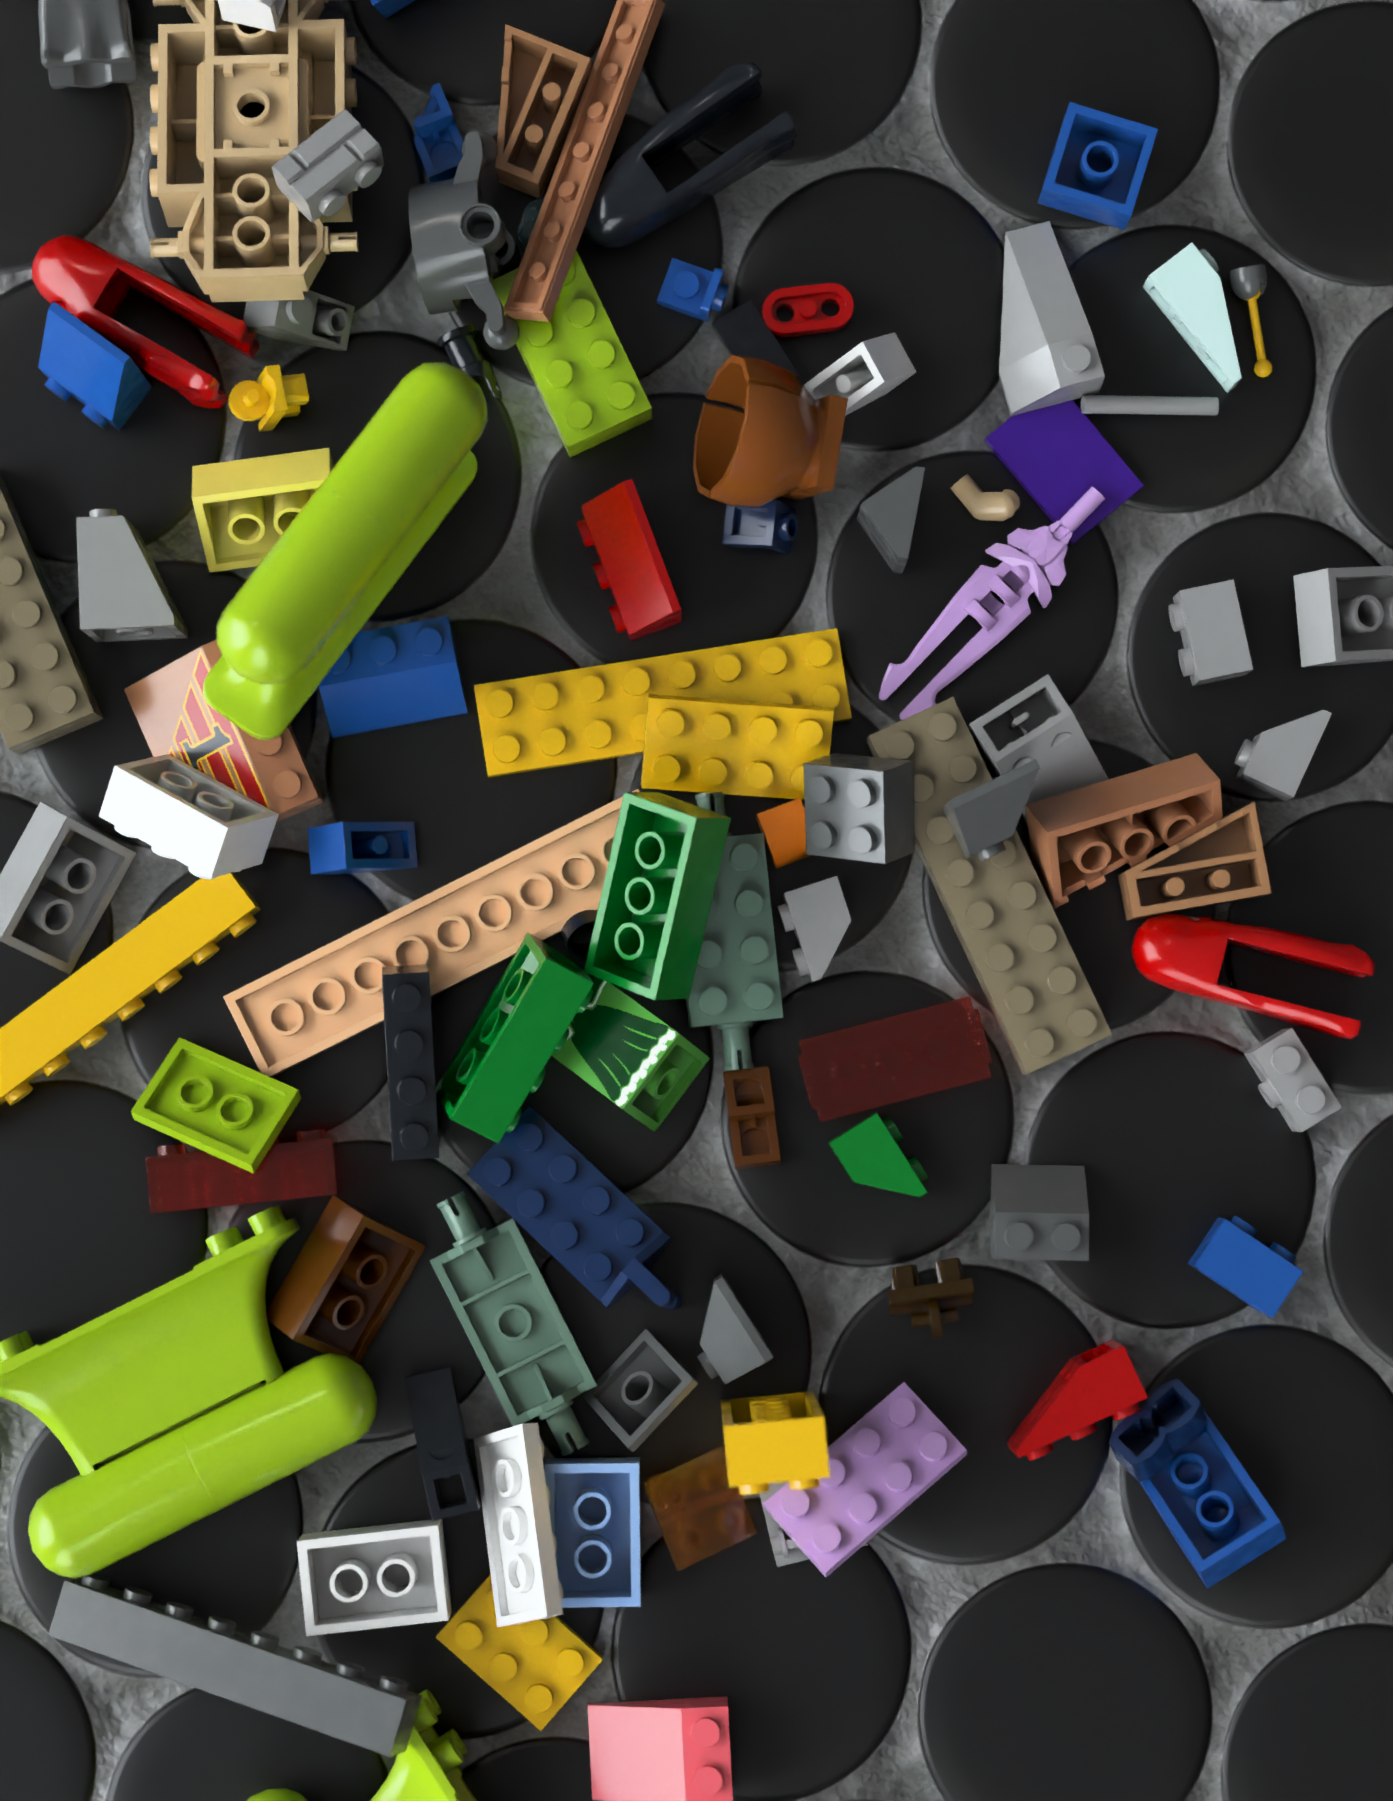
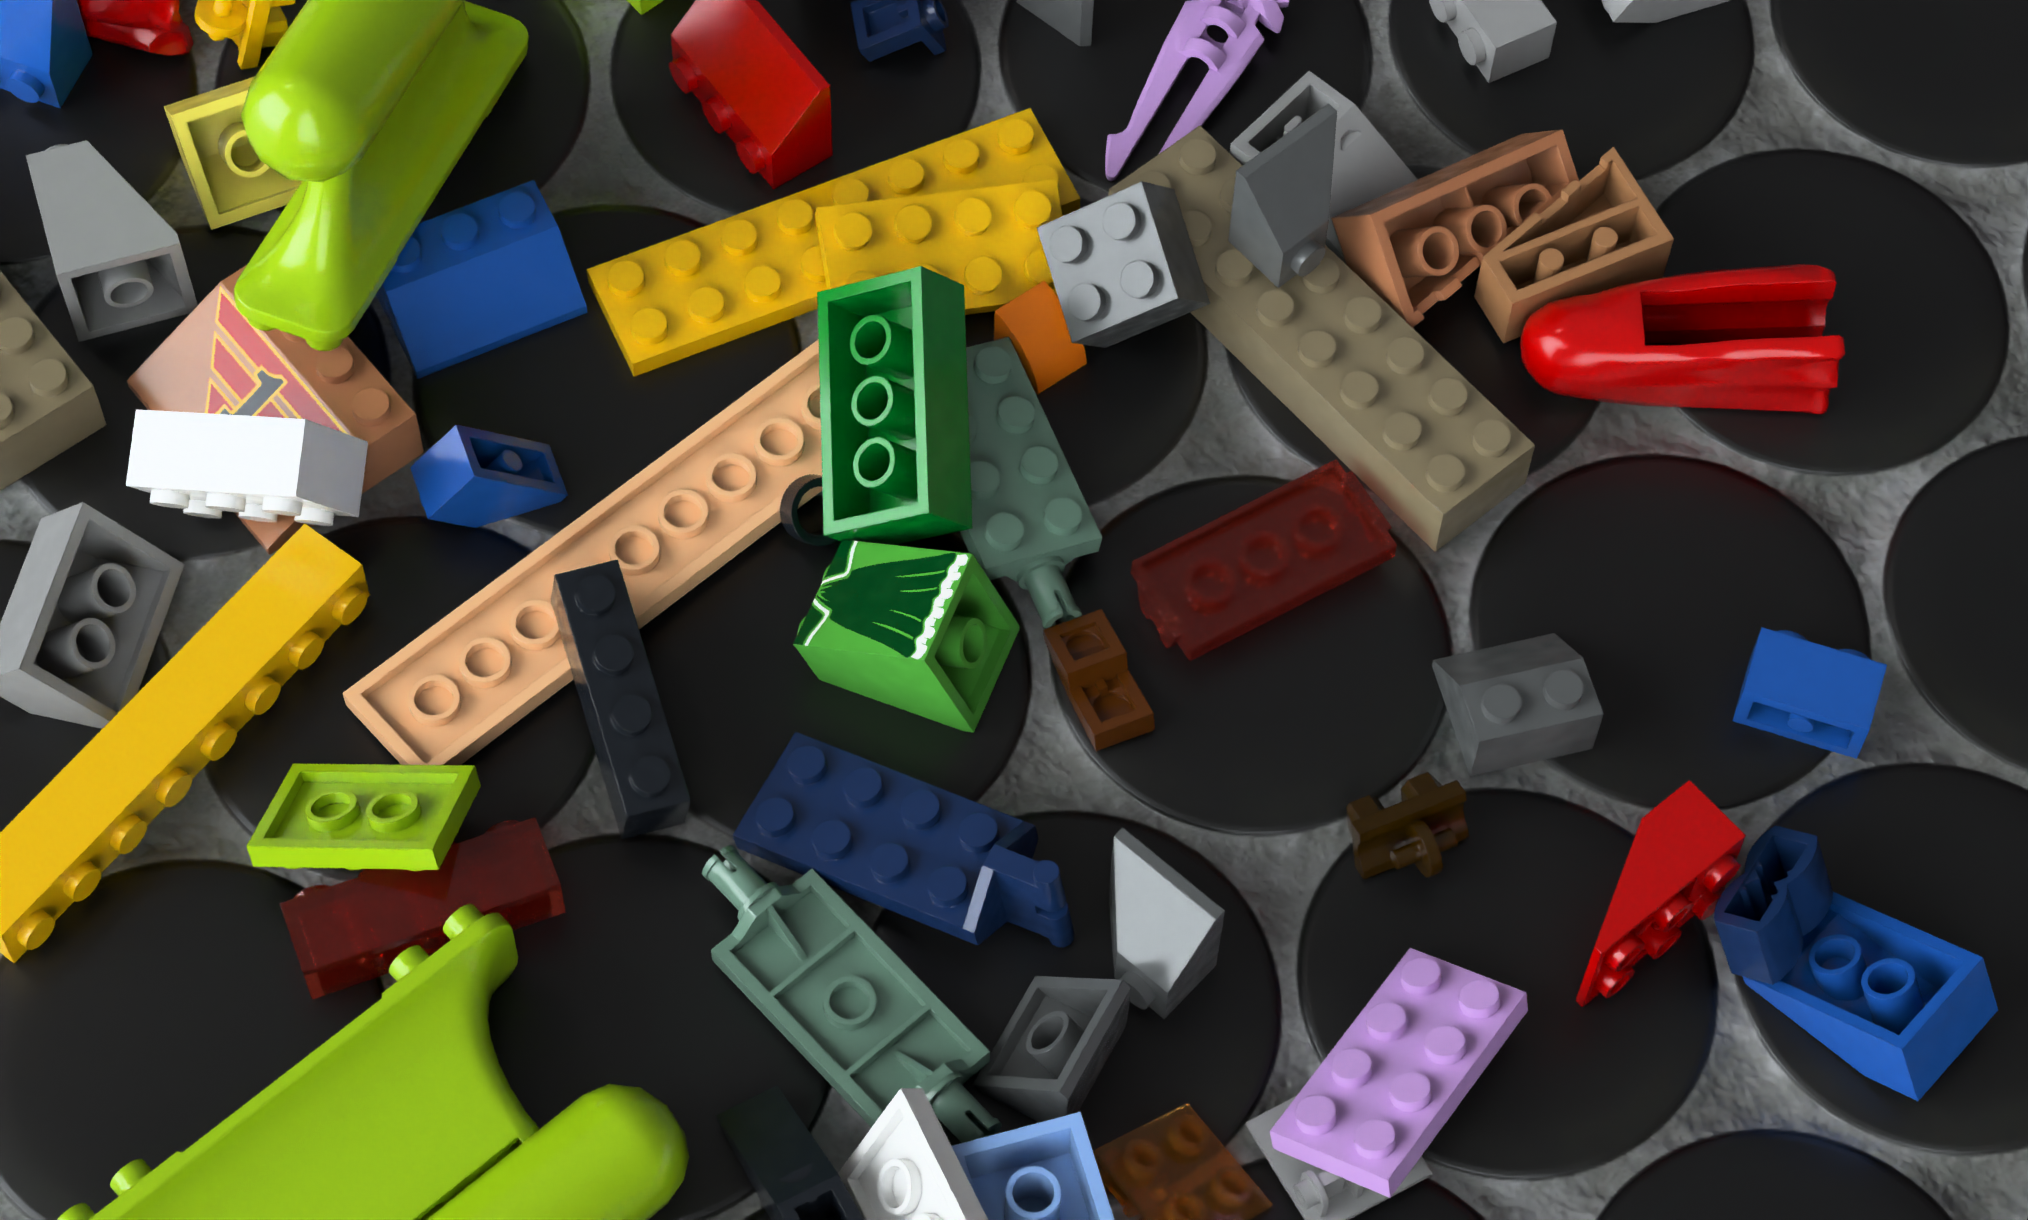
camera: 15 degrees left, 25 degrees down
(344, 1281) = (598, 1000): reddish brown slope -> none
(514, 1039) = (755, 631): green slope -> none
(774, 1441) = (1259, 972): yellow brick -> none
(819, 922) = (1110, 425): light grey slope -> none
(875, 1160) = (1281, 683): green slope -> none
(1281, 755) = (1625, 113): light grey slope -> none
(1291, 1080) = (1782, 459): light grey brick -> none

